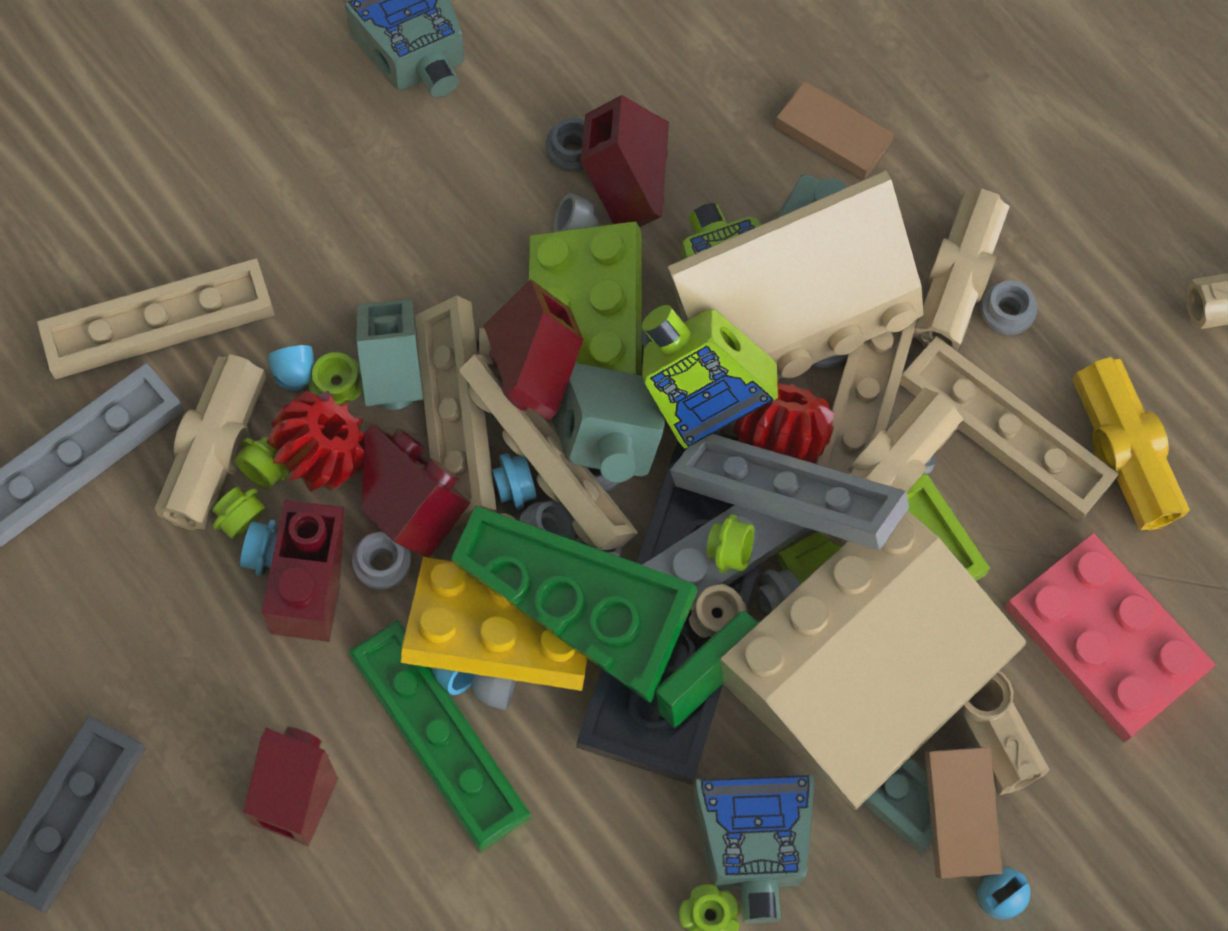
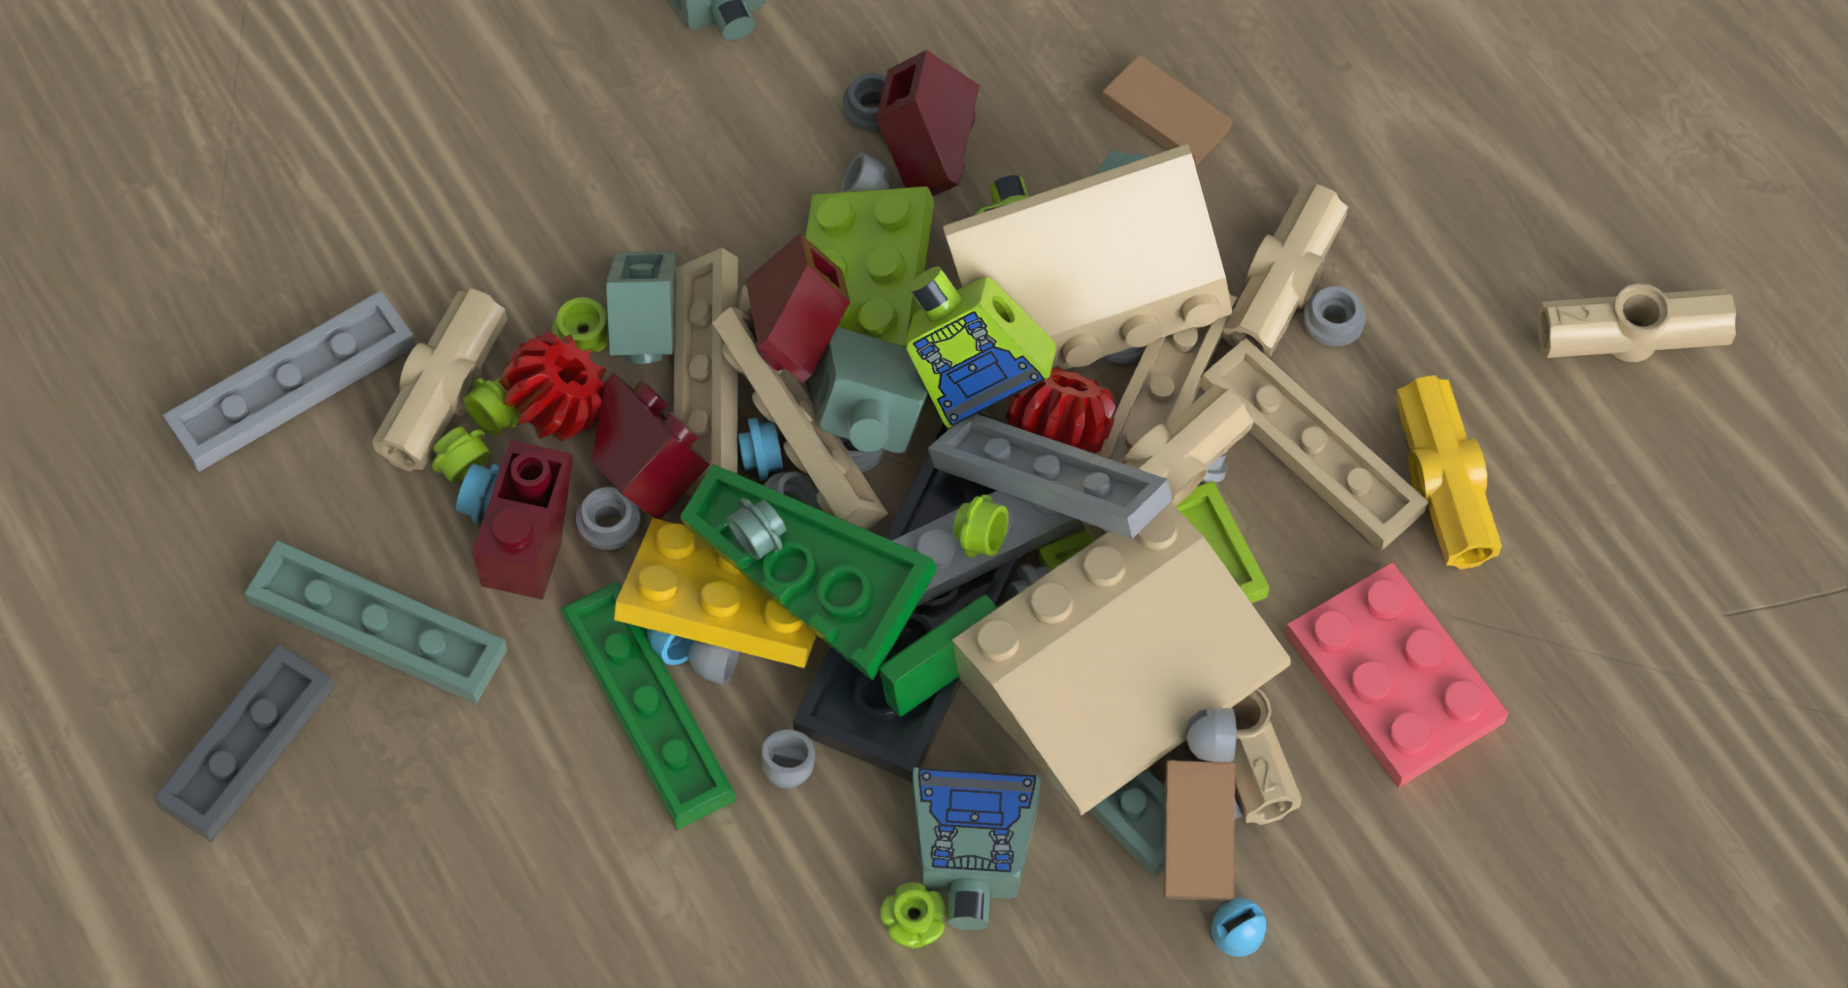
camera: 10 degrees right, 5 degrees down
(155, 318) = (396, 247): tan plate -> none
(175, 680) = (376, 621): none -> sand green plate
(289, 784) = (481, 731): dark red slope -> none
(292, 366) = (536, 308): medium azure hinge -> none
(527, 568) = (756, 527): none -> sand green plate
(576, 768) = (787, 758): none -> light grey hinge
(713, 597) = (953, 585): tan plate -> none
(969, 723) = (1212, 734): none -> light grey hinge

